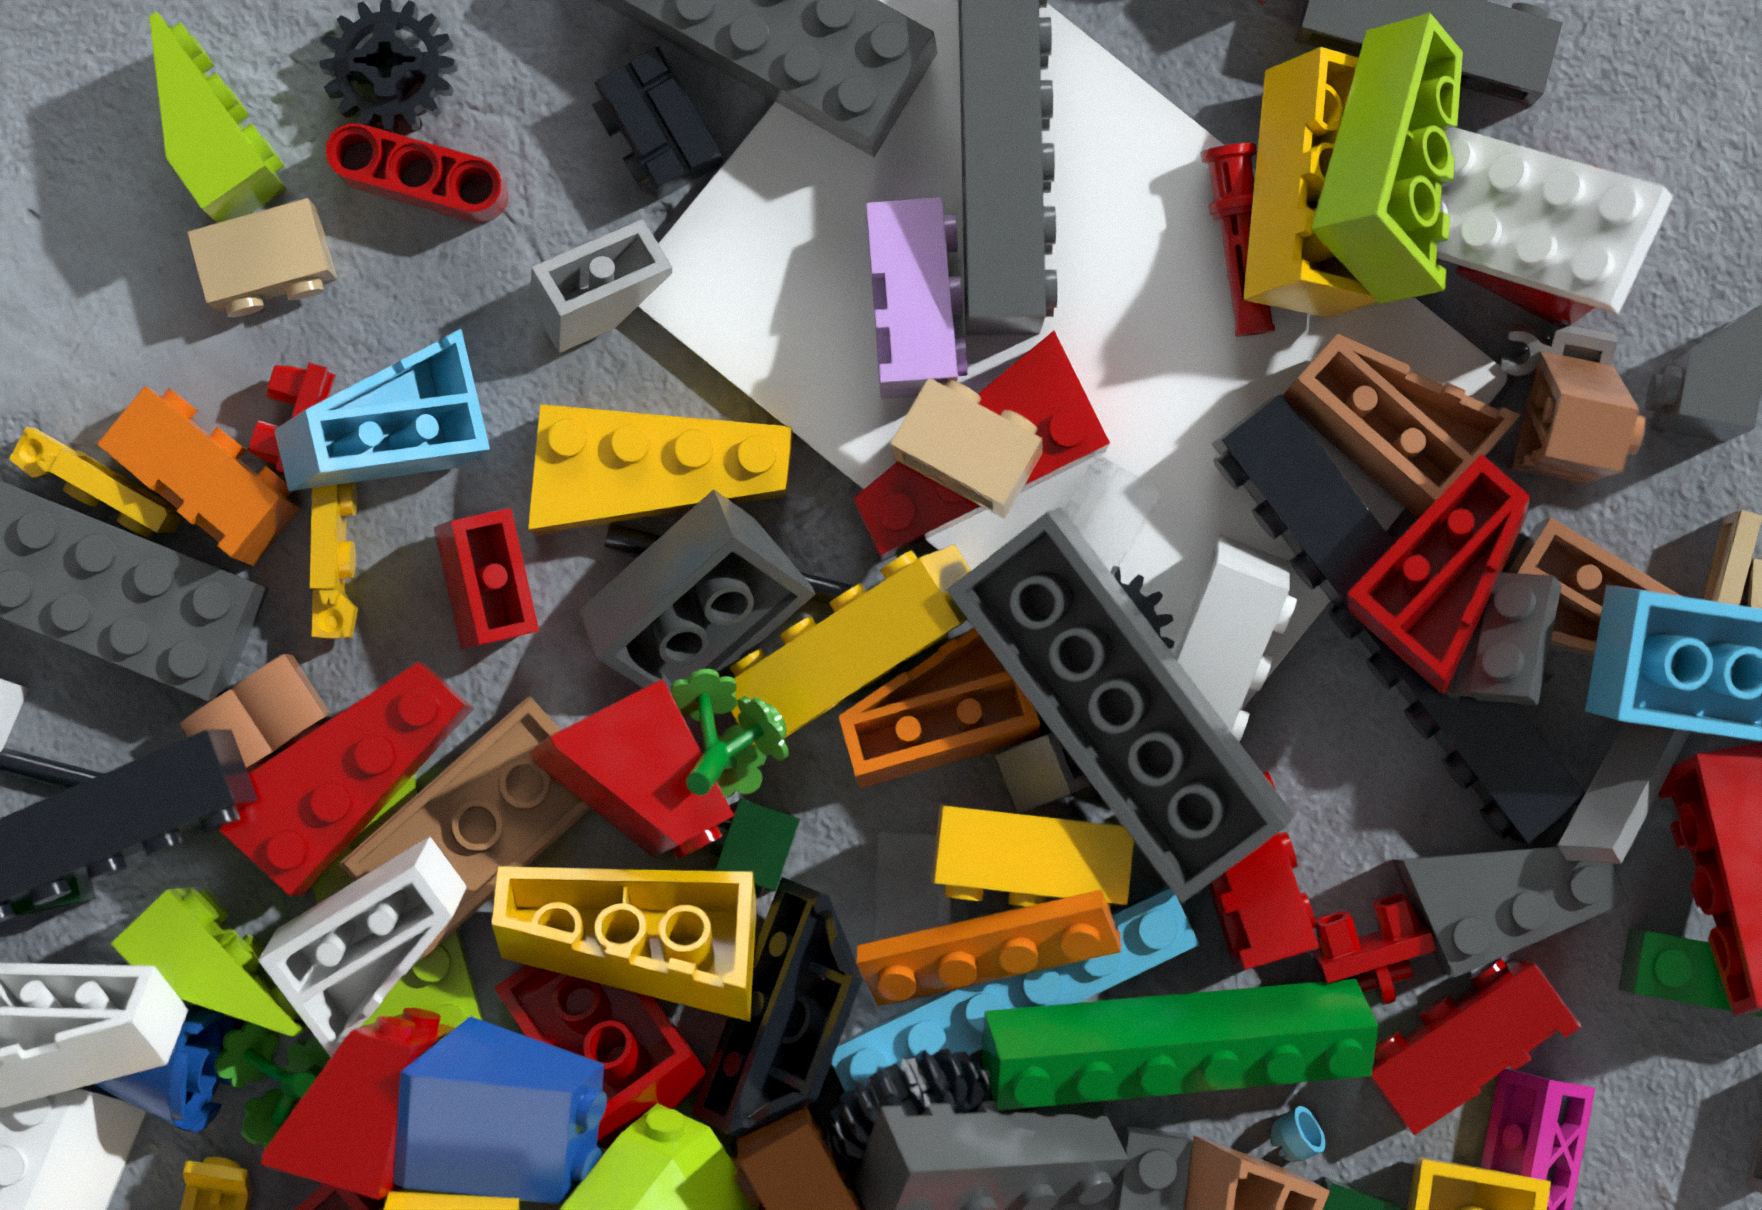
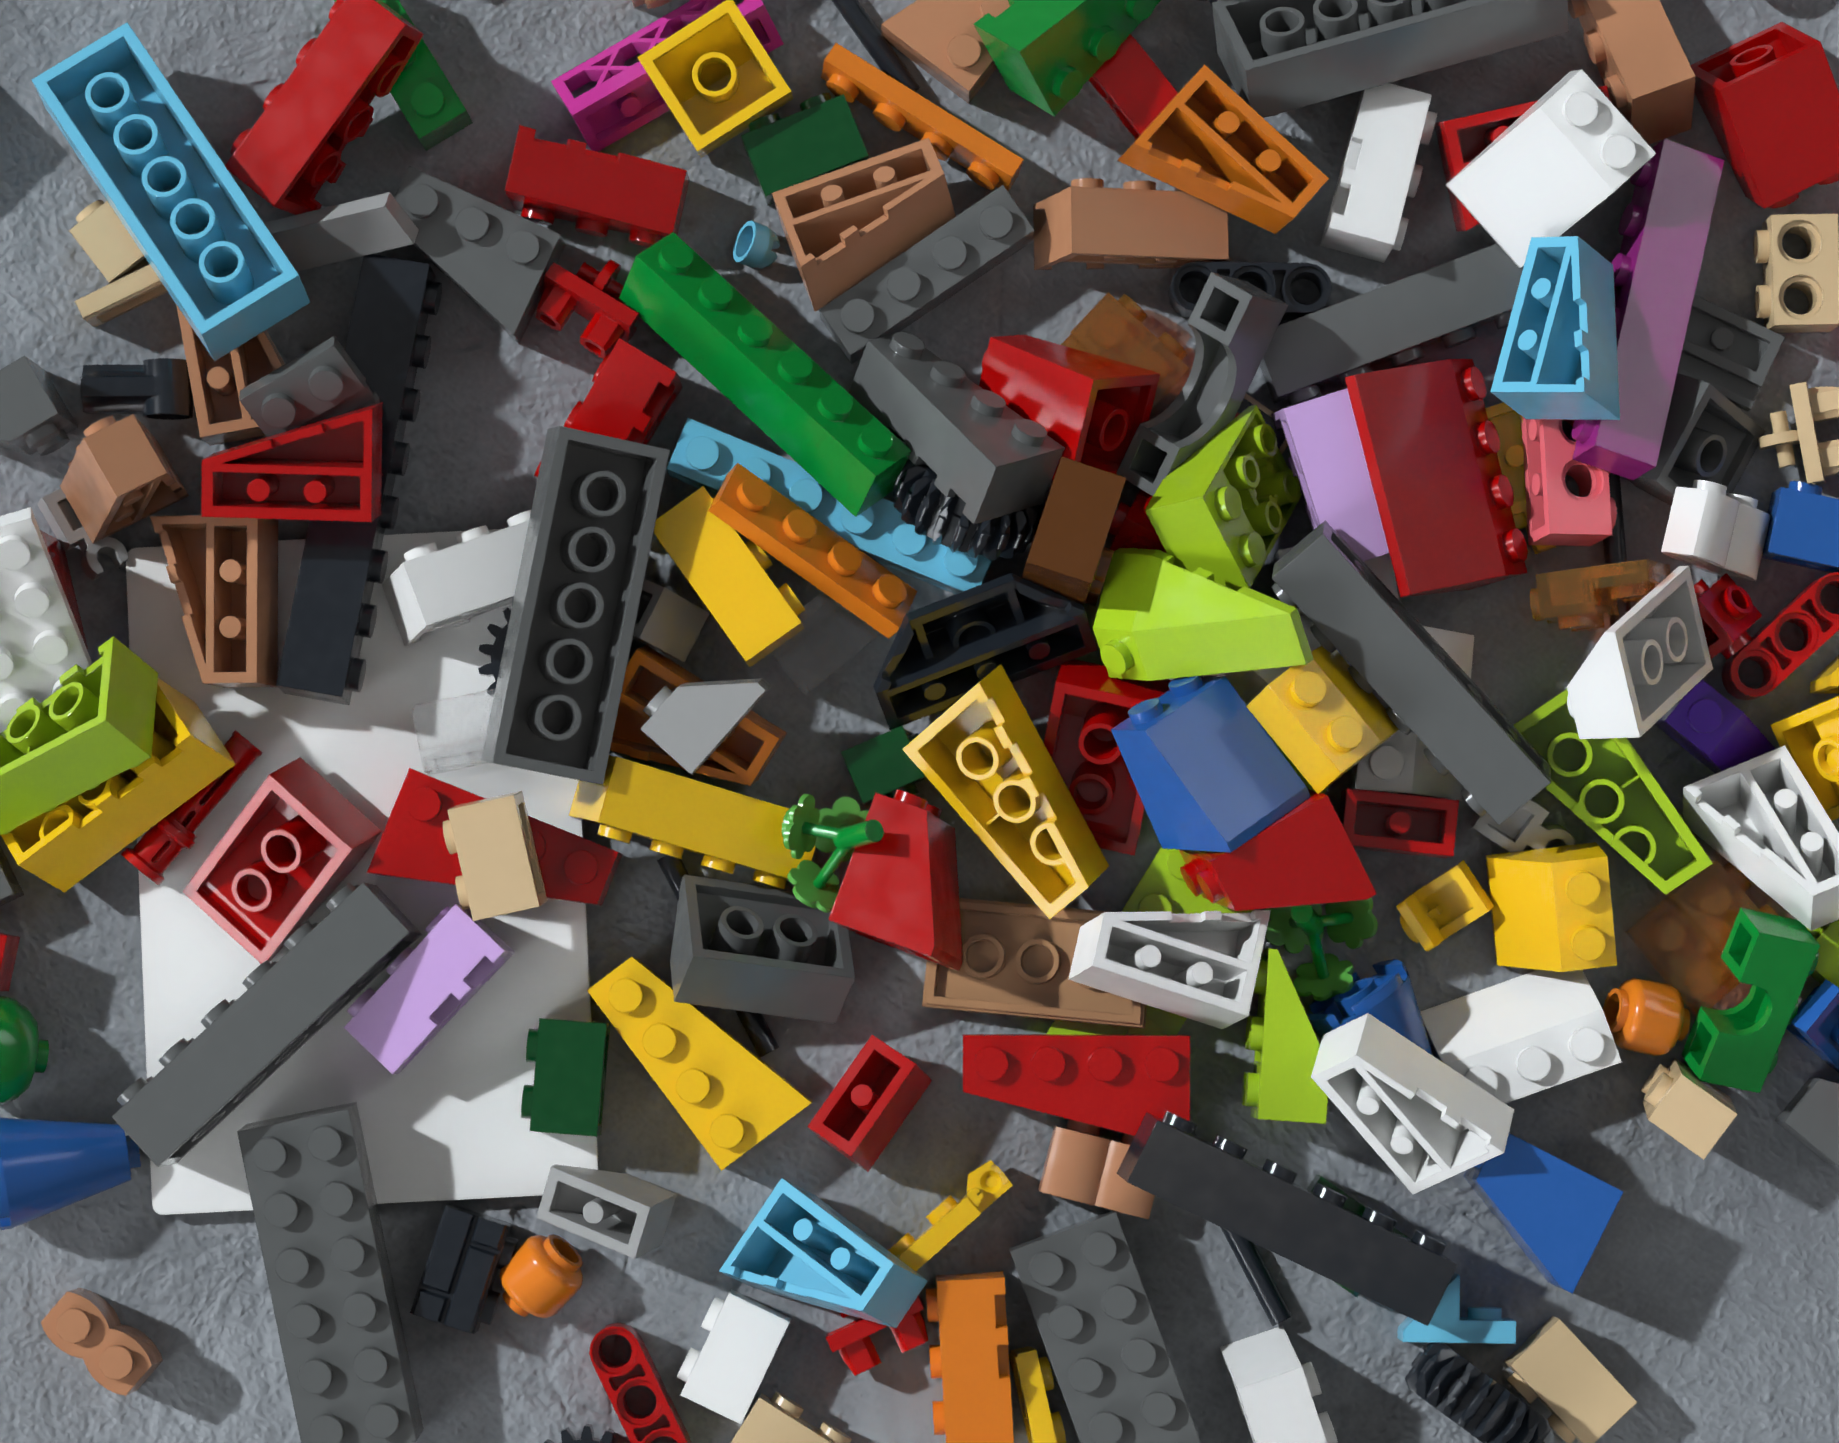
camera: 130 degrees left, 0 degrees up
(383, 281) = (734, 1355): none -> white brick
(592, 182) = (541, 1276): none -> orange head
(734, 347) = (567, 1077): none -> dark green brick
(932, 725) = (700, 717): none -> light grey slope
(1131, 272) = (281, 859): none -> red slope
(1627, 517) = (154, 389): none -> black piece

